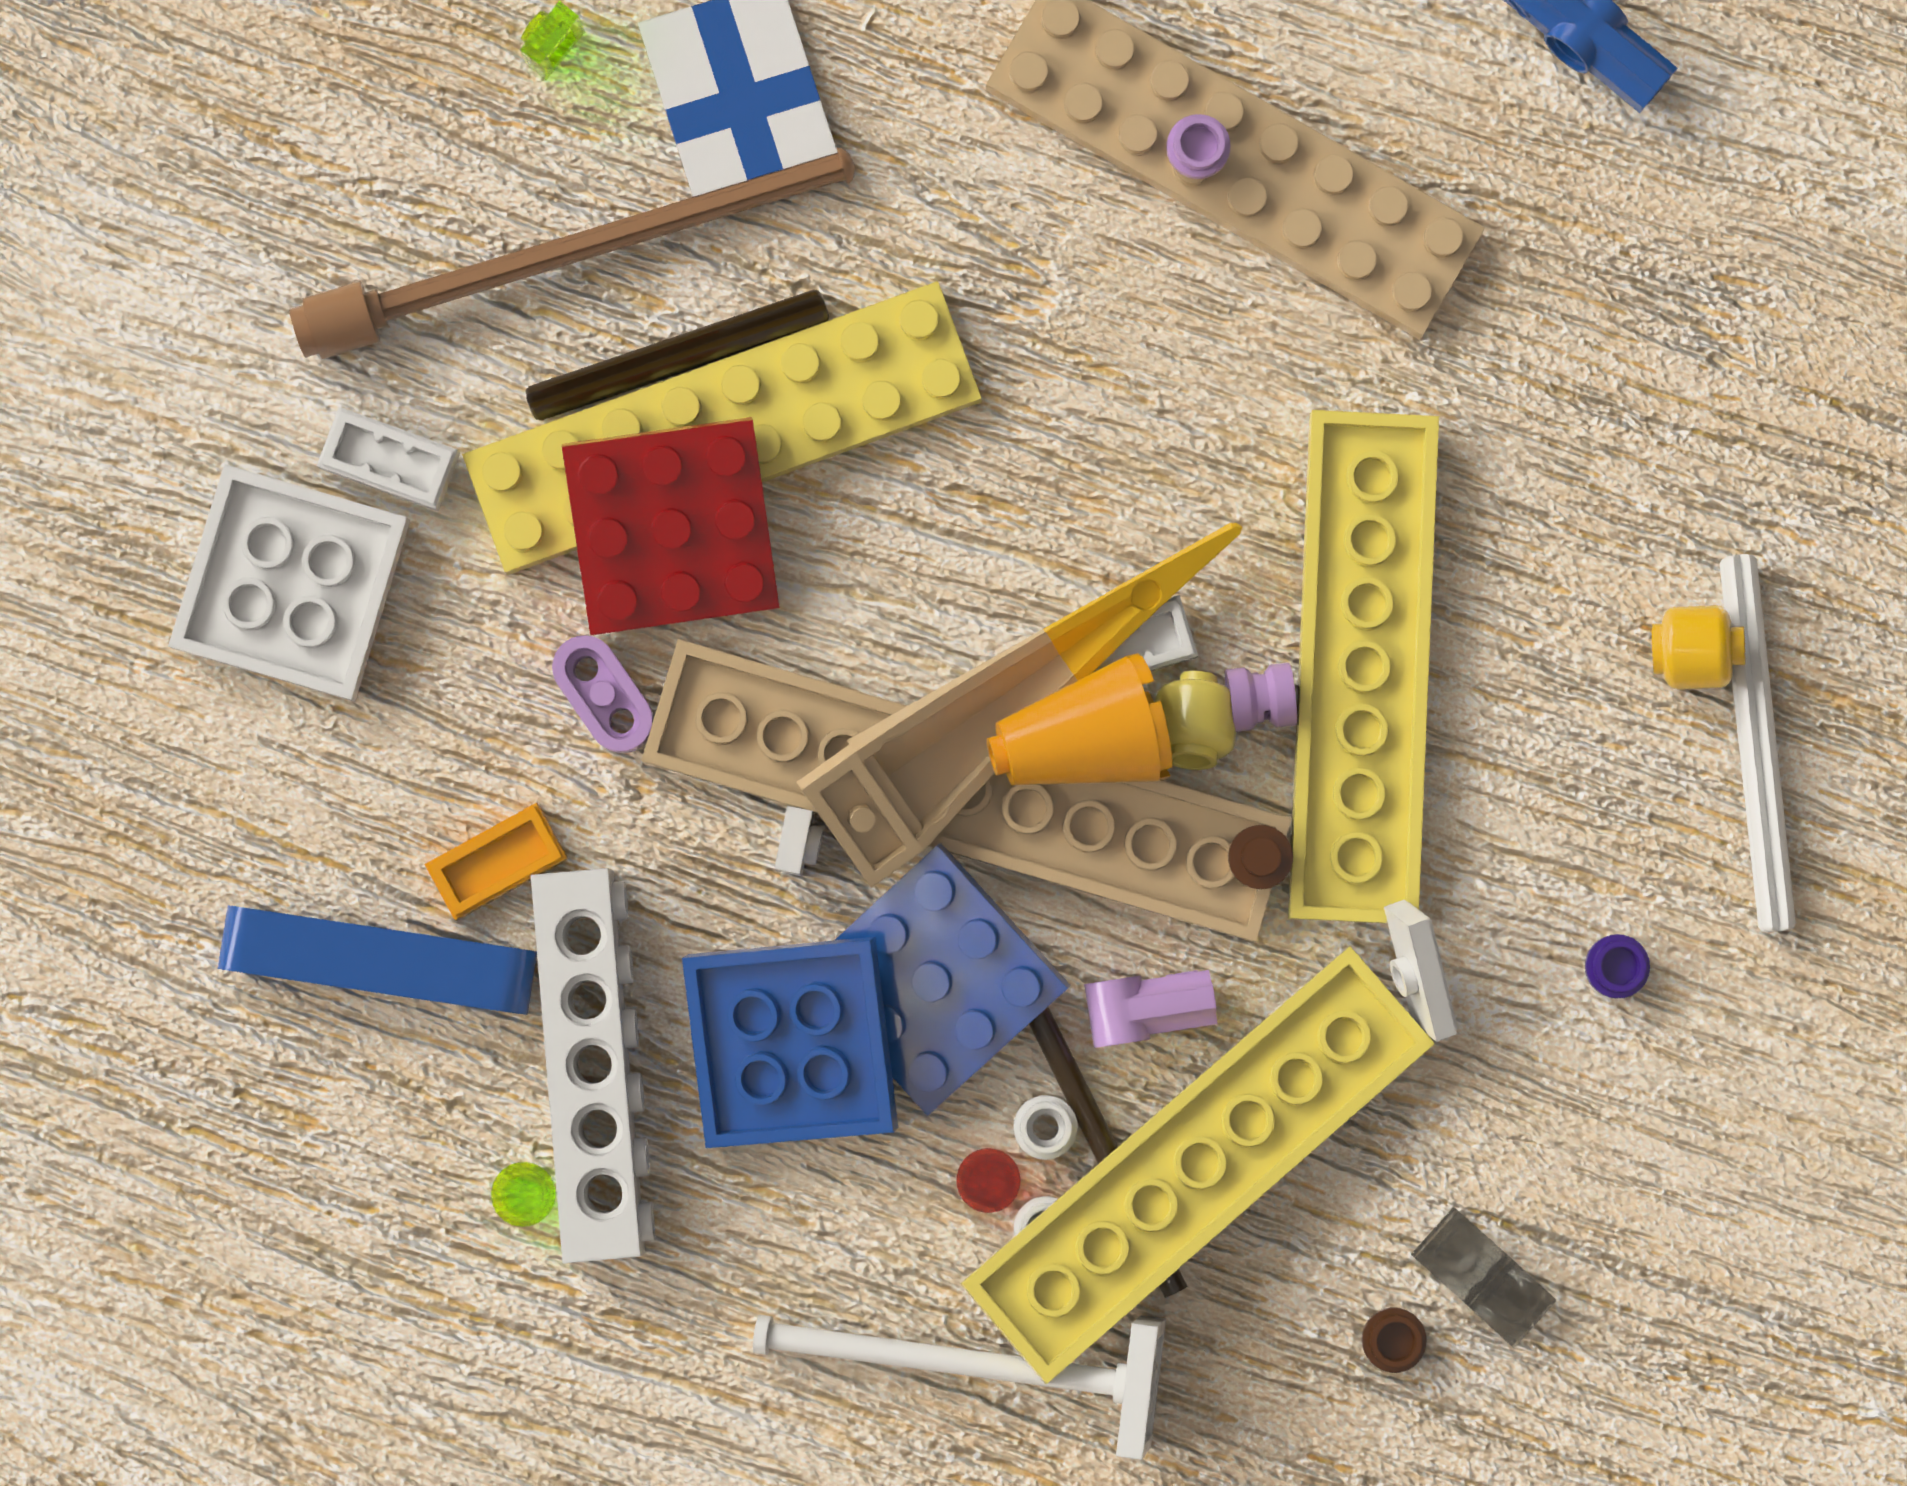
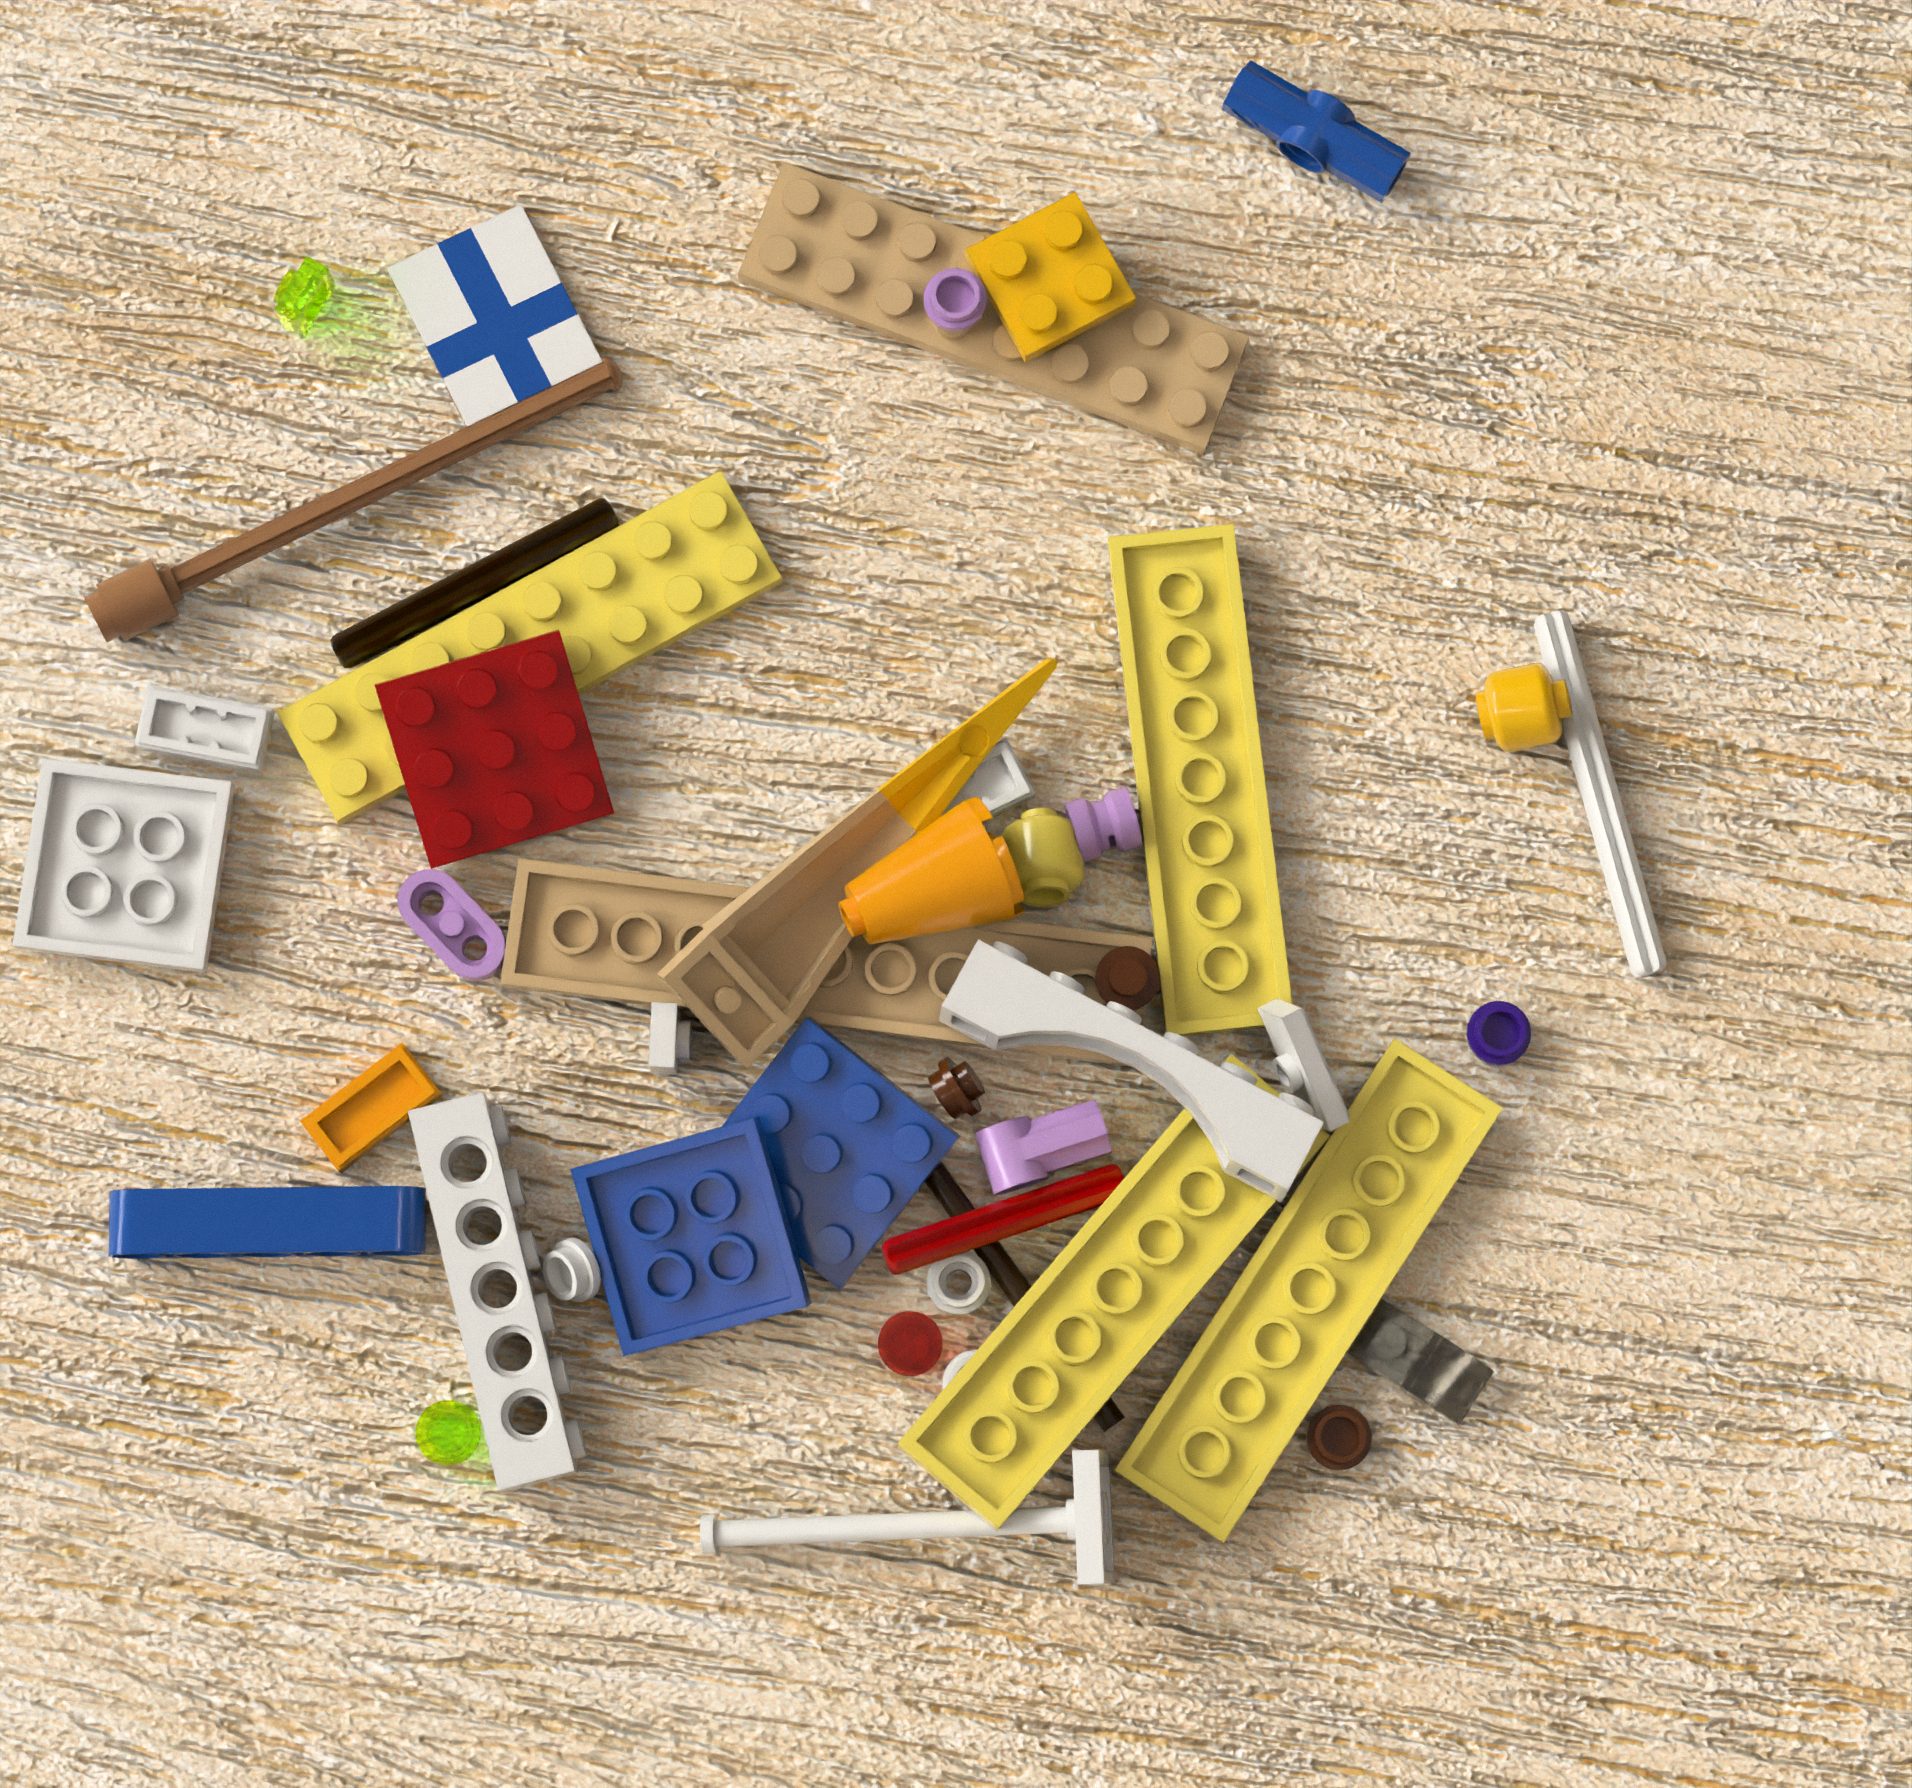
camera: 10 degrees left, 5 degrees down
(668, 1056) = (572, 1271): none -> white plate
(1074, 936) = (957, 1088): none -> reddish brown plate
(1098, 1074) = (1000, 1219): none -> red axle
(1297, 138) = (1050, 277): none -> yellow plate
(1356, 1028) = (1014, 1005): none -> white arch
(1388, 1191) = (1308, 1291): none -> light yellow plate

